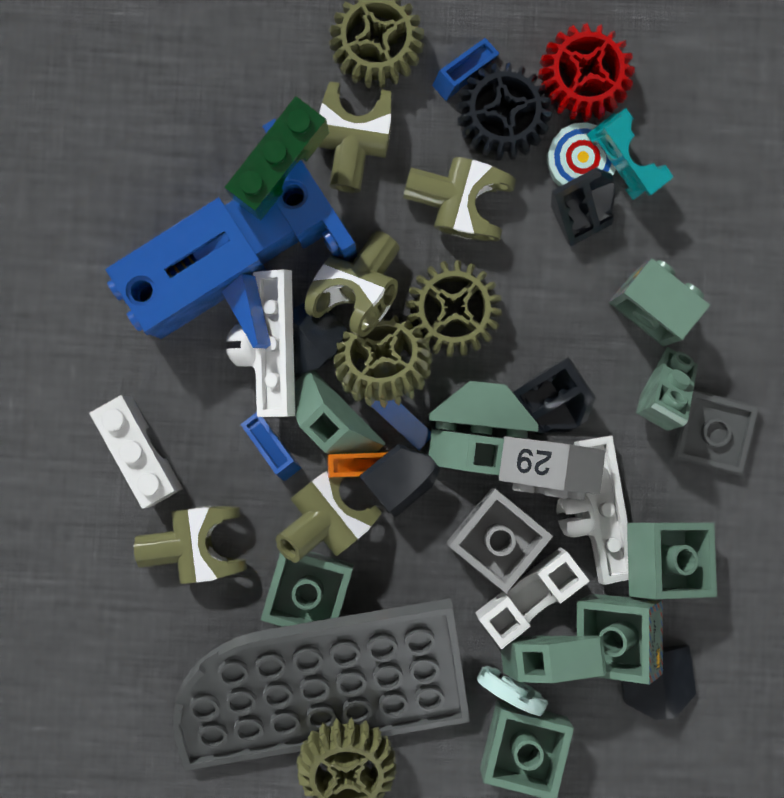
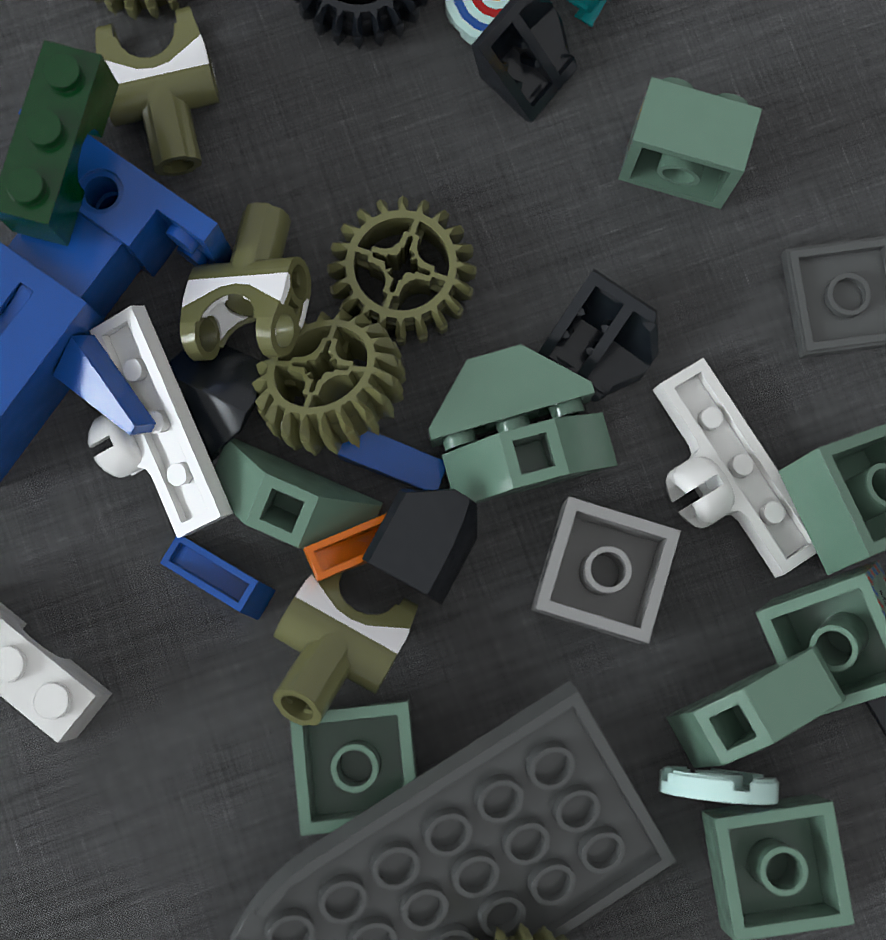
camera: 25 degrees left, 5 degrees down
(190, 545) = (152, 770): olive connector -> none
(457, 196) = (343, 113): olive connector -> none
(544, 584) = (697, 613): white arch -> none
(551, 468) = (636, 431): light grey brick -> none
(669, 391) = (757, 263): sand green slope -> none

